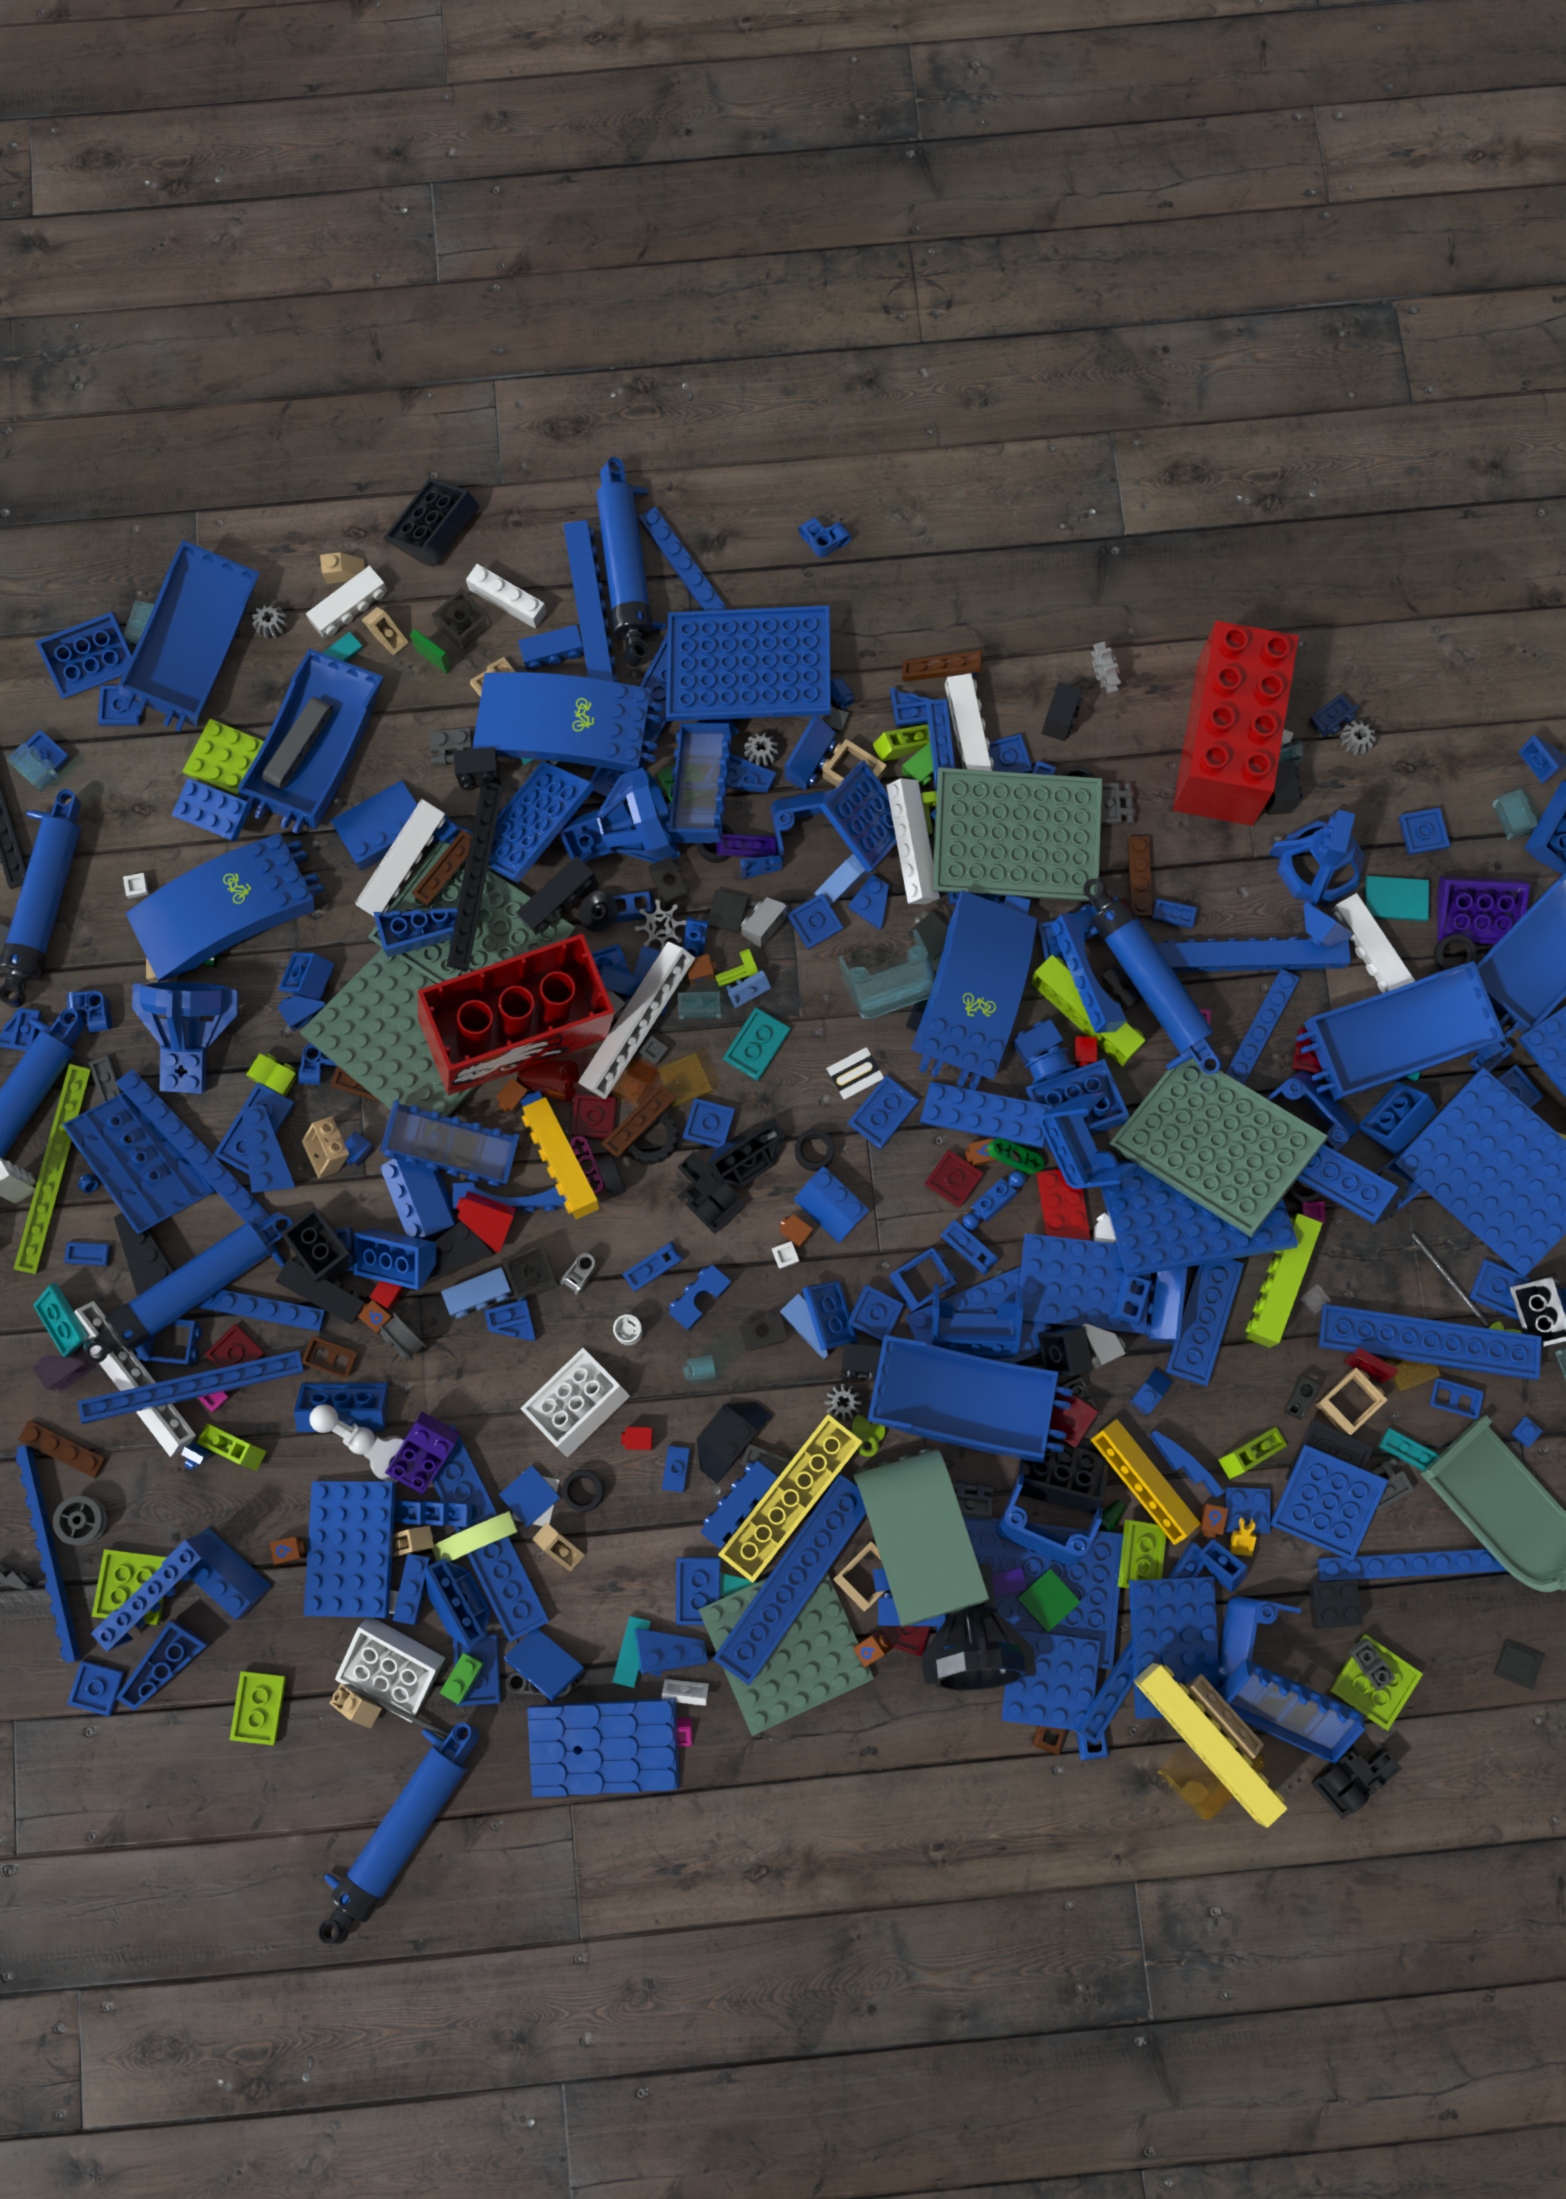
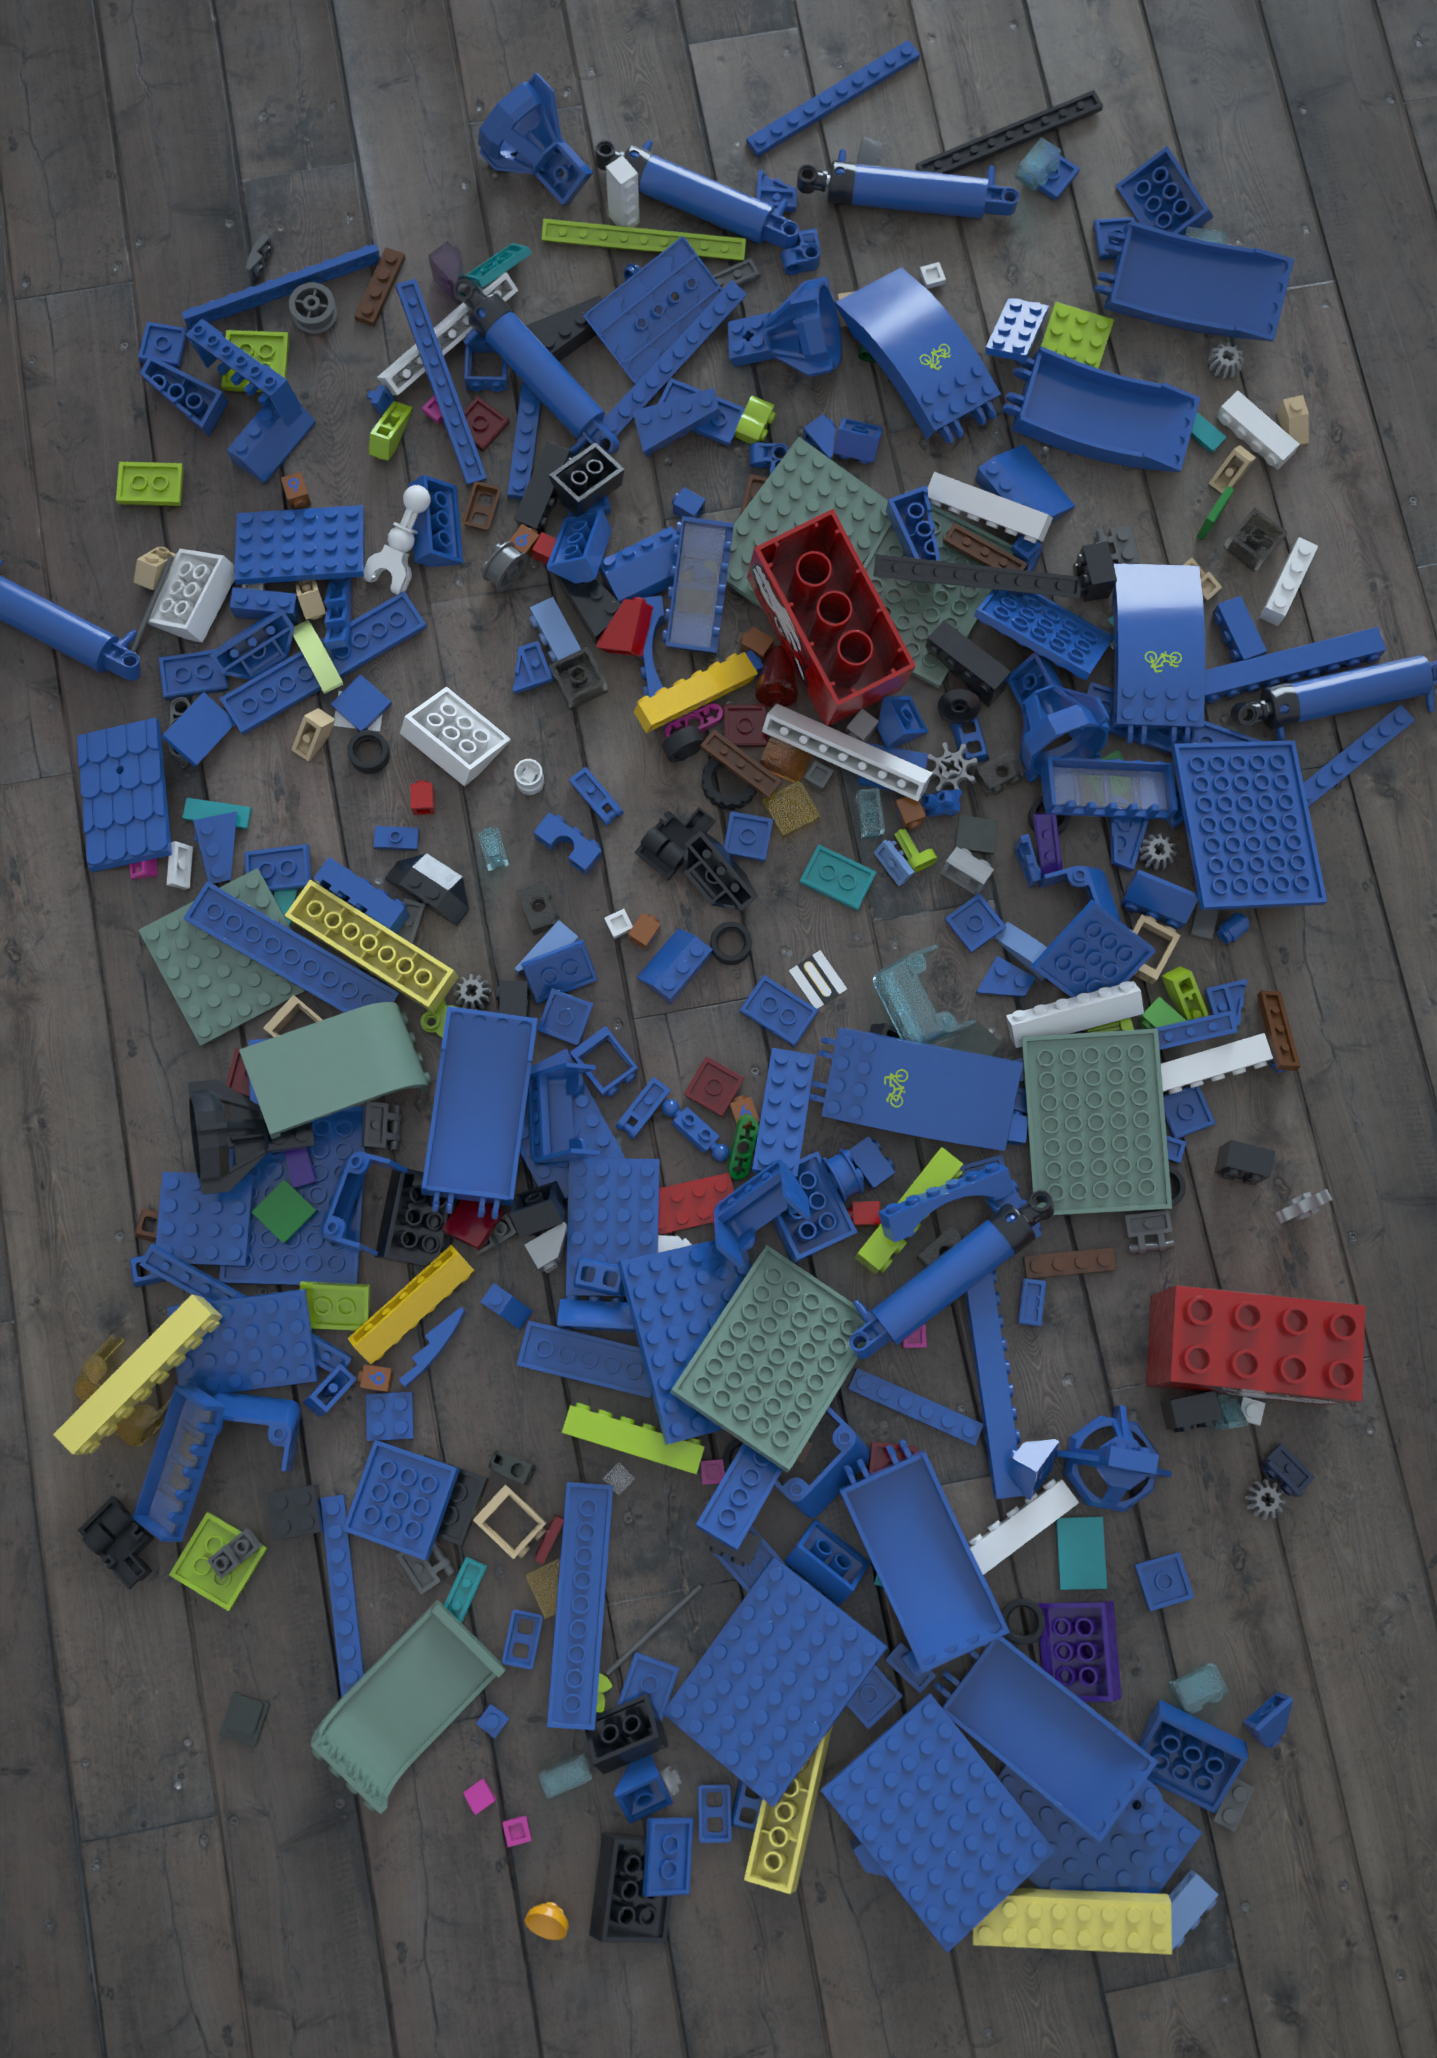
camera: 80 degrees right, 0 degrees up
(87, 1254) = (565, 283): blue tile -> none
(297, 742) = (1099, 400): dark grey beam -> none
(331, 1152) = (684, 473): tan window -> none
(422, 1452) = (394, 596): dark purple slope -> none
(432, 521) = (1359, 502): black slope -> none
(462, 1678) = (182, 657): bright green brick -> none
(578, 1274) = (579, 726): light grey piece -> none
(620, 980) = (885, 729): blue tile -> none
(814, 534) = (1412, 907): blue piece -> none
(873, 1647) = (228, 1040): dark orange brick -> none
(1112, 1515) = (374, 1272): dark green cone -> none
(1225, 1716) = (166, 1388): tan panel -> none
(1244, 1540) = (357, 1411): yellow plate -> none
(1252, 1453) = (449, 1418): lime slope -> none

